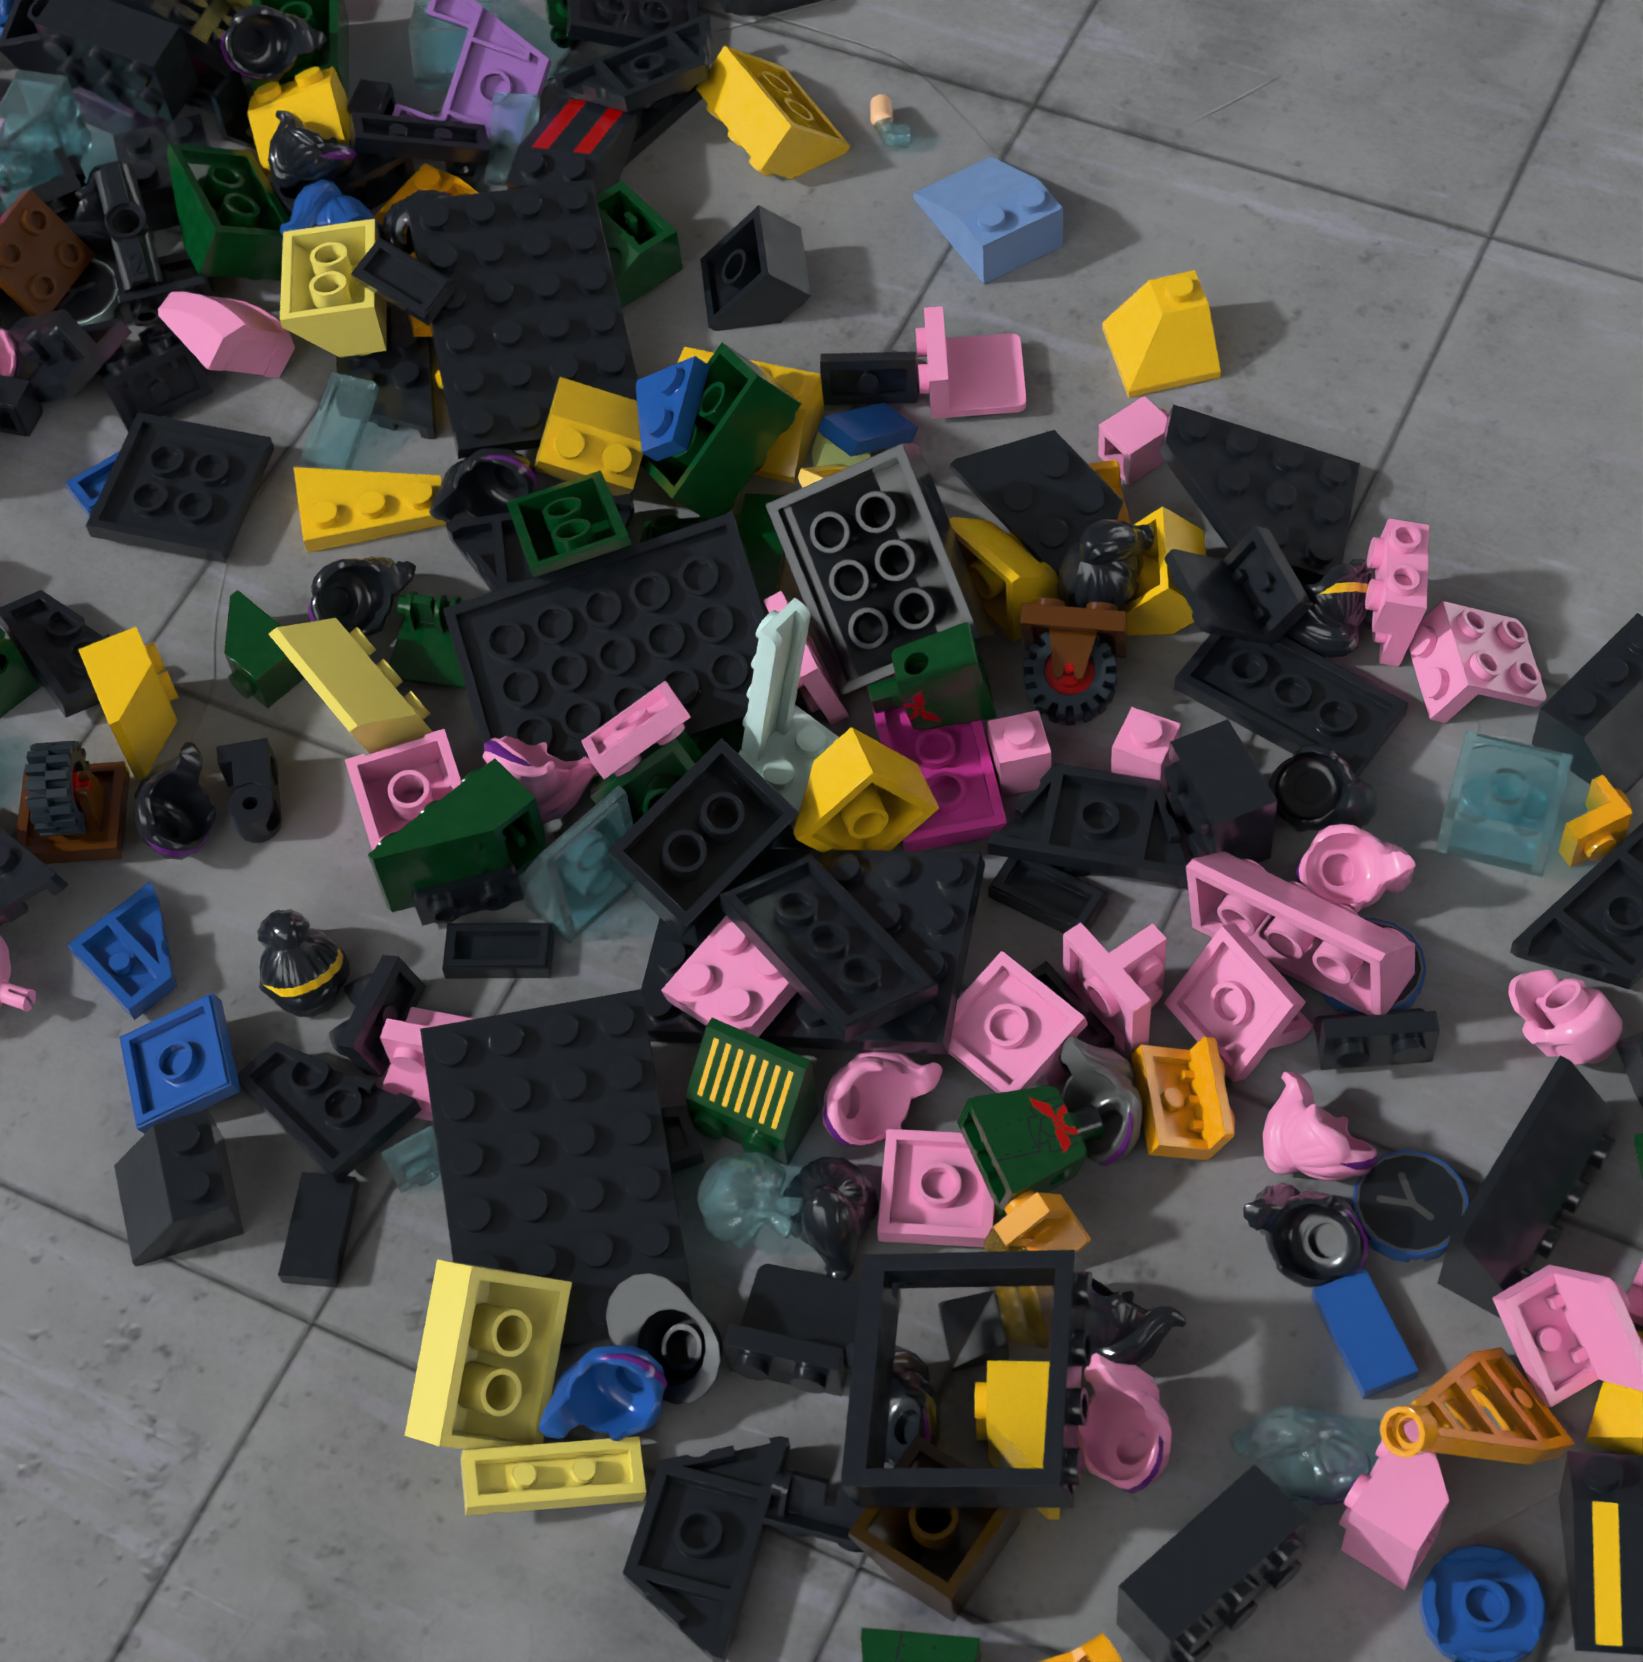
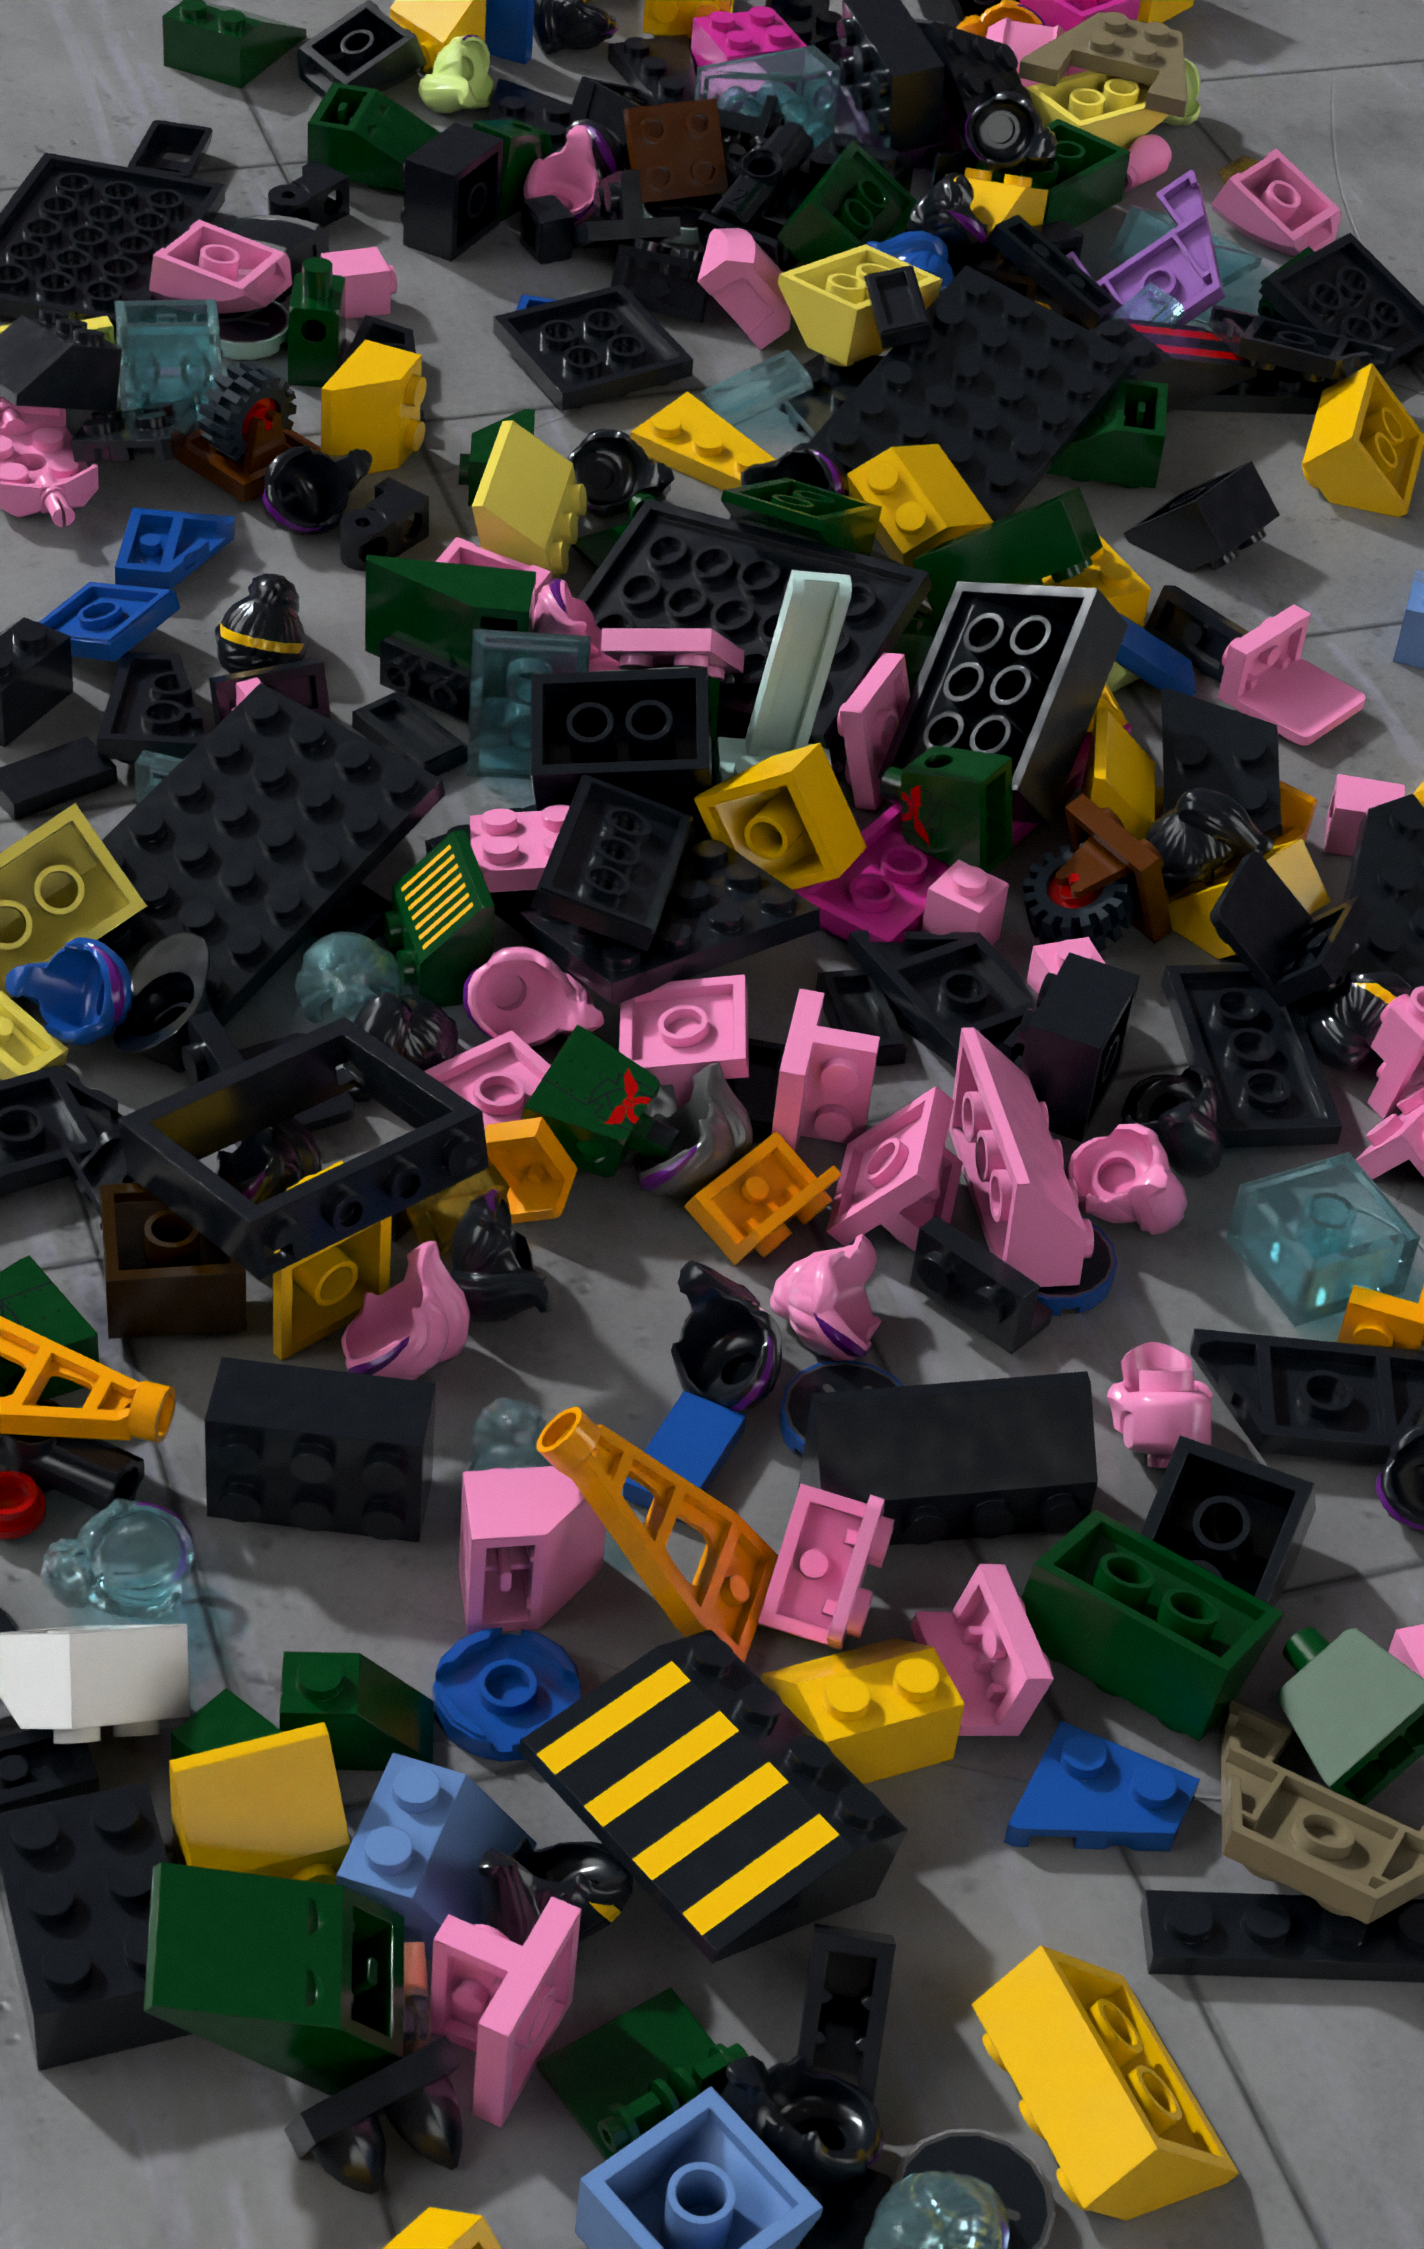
camera: 35 degrees right, 15 degrees down
(669, 407) = (1009, 500): blue wing -> none

